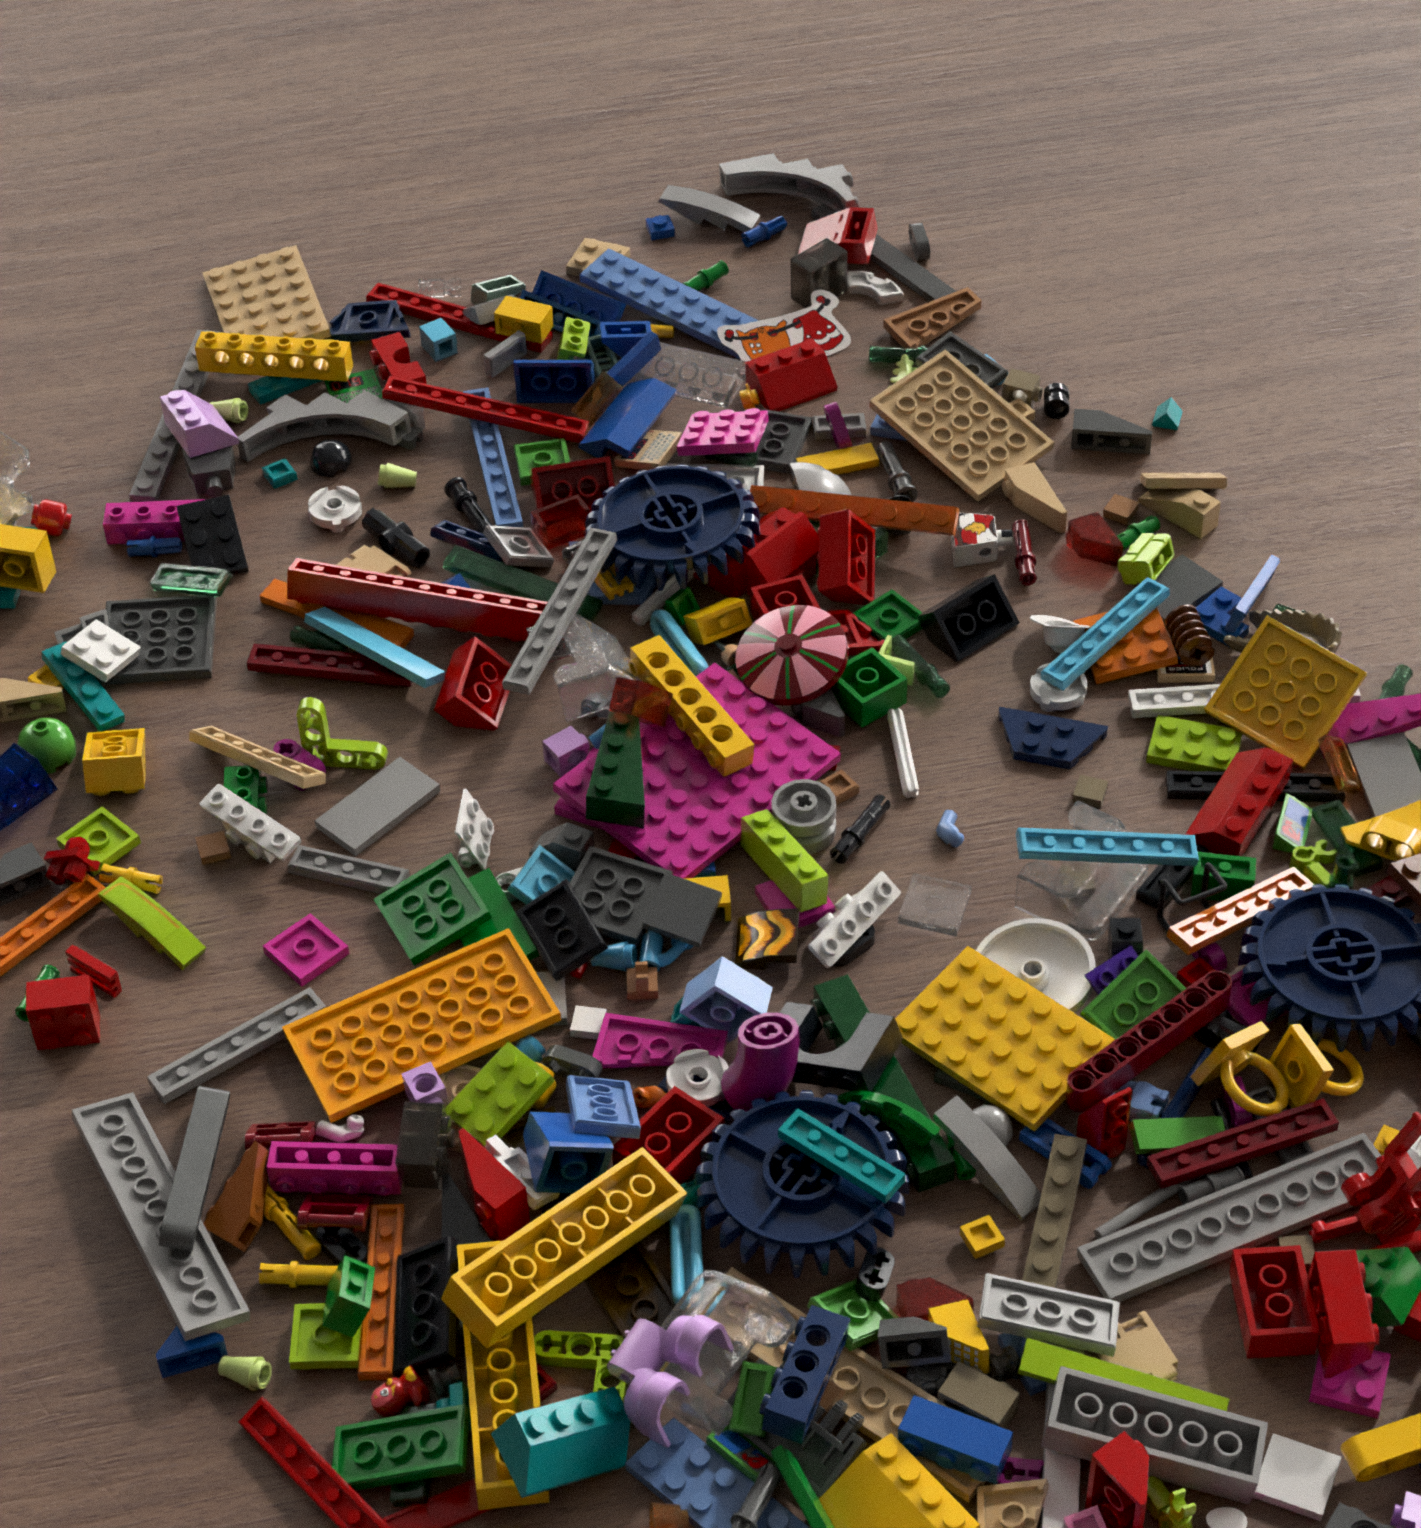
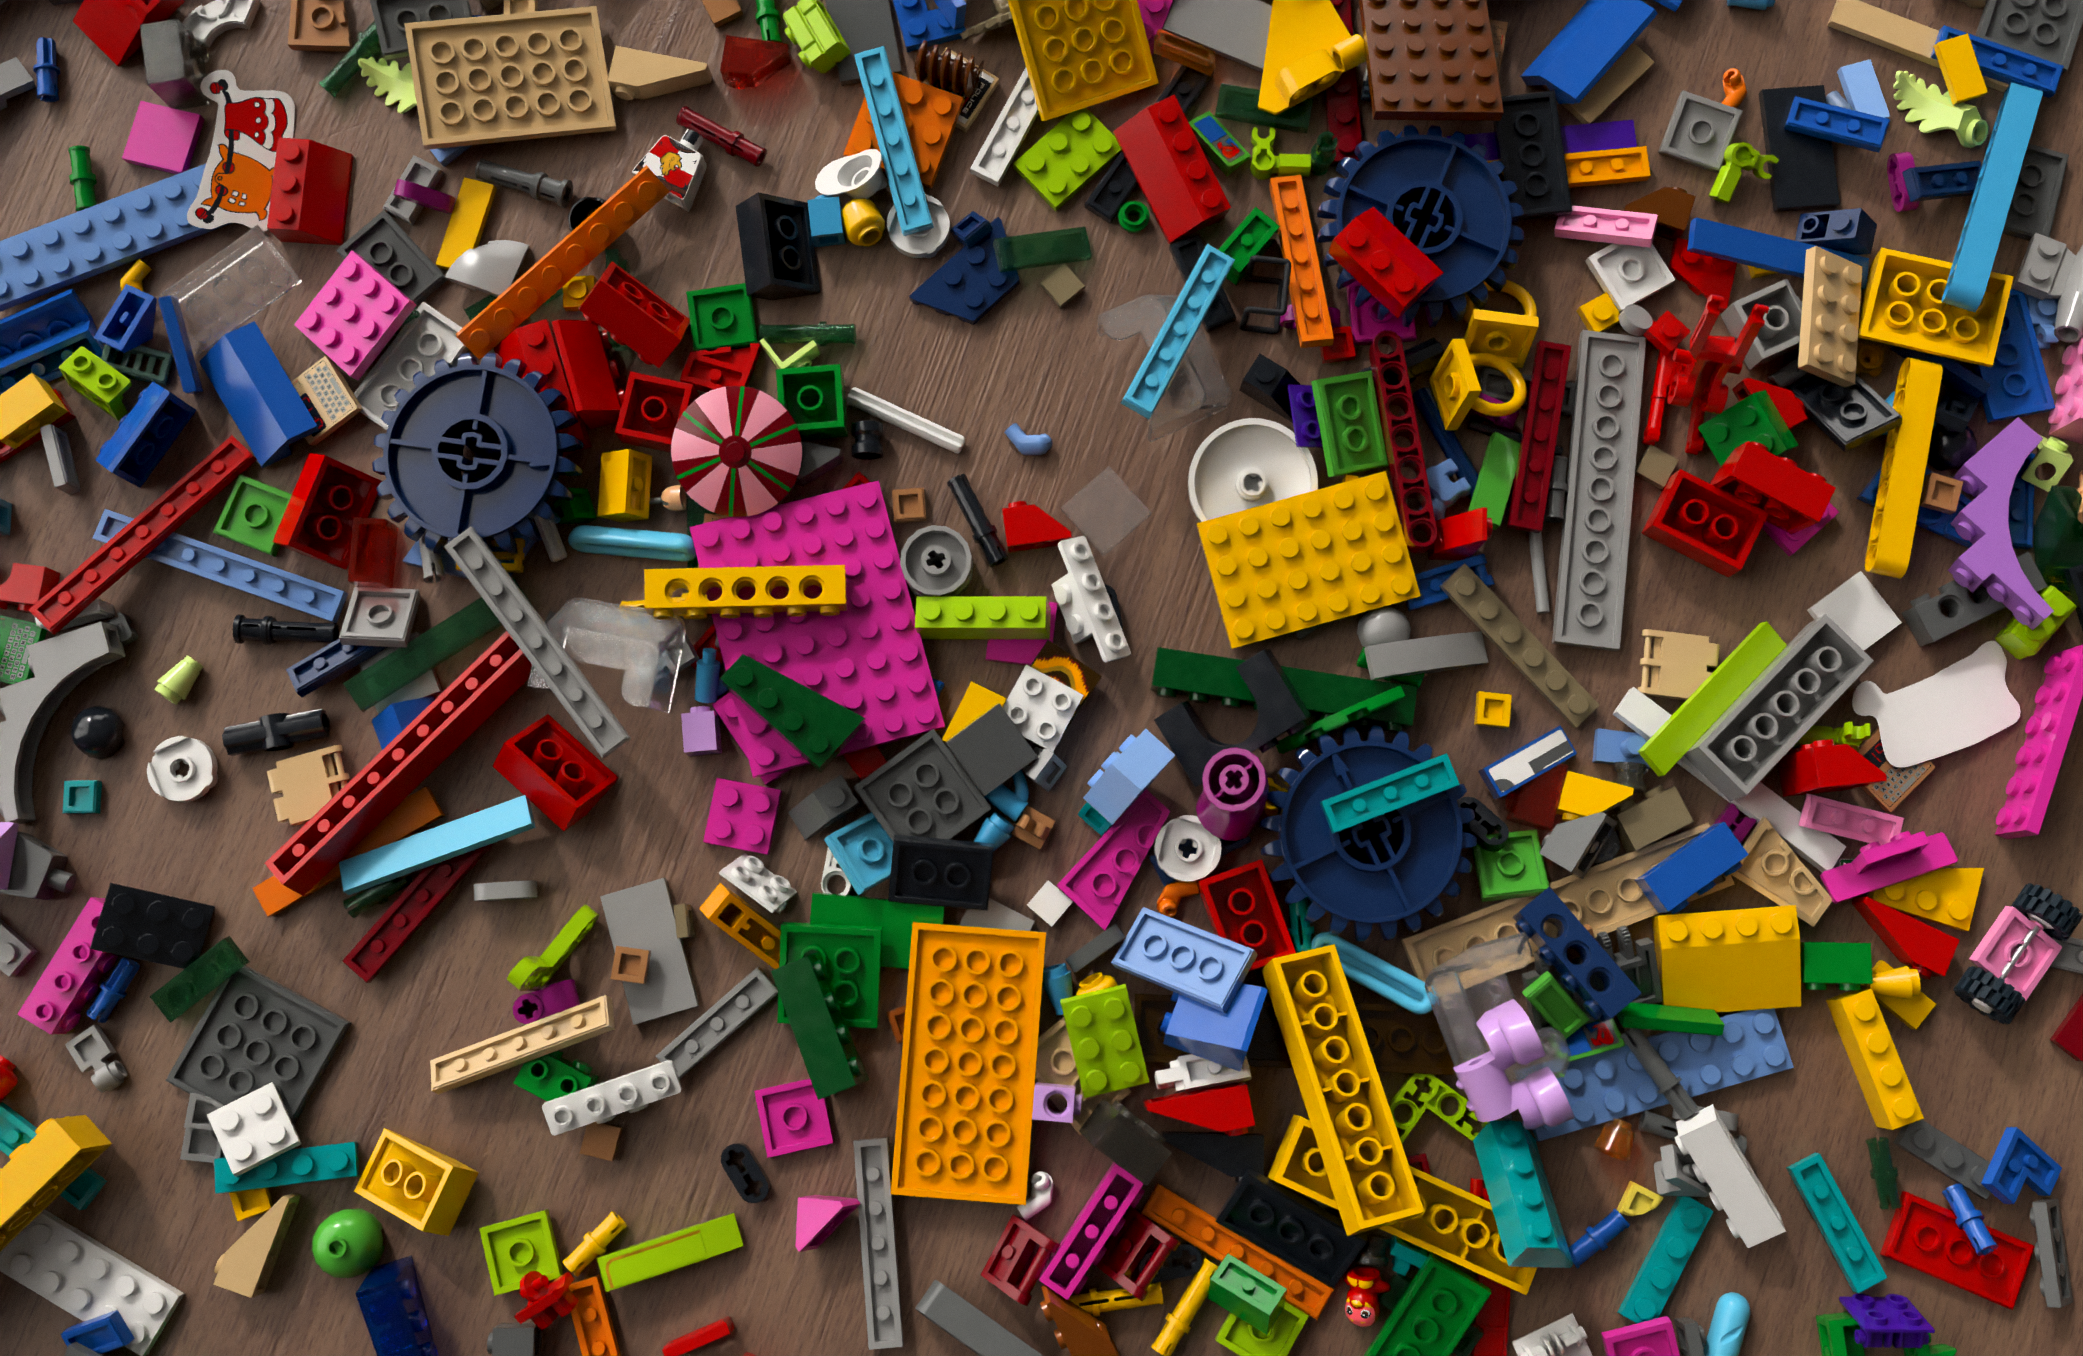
camera: 60 degrees left, 35 degrees up
(101, 556) = (91, 1051): none -> light grey plate
(232, 996) = (819, 1218): none -> slope
(246, 943) = (738, 1177): none -> black beam
(359, 791) = (631, 964): none -> medium nougat plate
(366, 704) = (505, 890): none -> light grey beam
(382, 915) = (819, 1027): none -> dark green wedge
(414, 809) = (684, 921): none -> dark tan tile
(436, 834) = (743, 924): none -> light orange slope
(520, 808) = (742, 816): none -> dark pink plate
(597, 398) = (207, 408): clear orange tile -> none
(641, 701) = (730, 643): clear red panel -> none
(693, 961) = (1045, 769): none -> light grey tile
(740, 931) = (1041, 707): none -> white hinge
(749, 397) = (312, 253): yellow plate -> none
(766, 299) = (163, 138): none -> dark pink tile
(866, 735) = (867, 440): none -> black wheel
(876, 854) = (1031, 528): none -> red slope
(937, 1263) = (1527, 762): none -> slope
(1013, 634) = (826, 221): none -> dark azure brick
(1030, 652) = (862, 222): none -> yellow head
(1049, 1314) = (1618, 713): light grey tile -> none
(1083, 714) = (971, 229): none -> dark blue tile
(1106, 761) = (1042, 249): none -> clear green tile
(1184, 804) = (1137, 208): none -> green plate
(1281, 936) = (1384, 261): none -> red slope

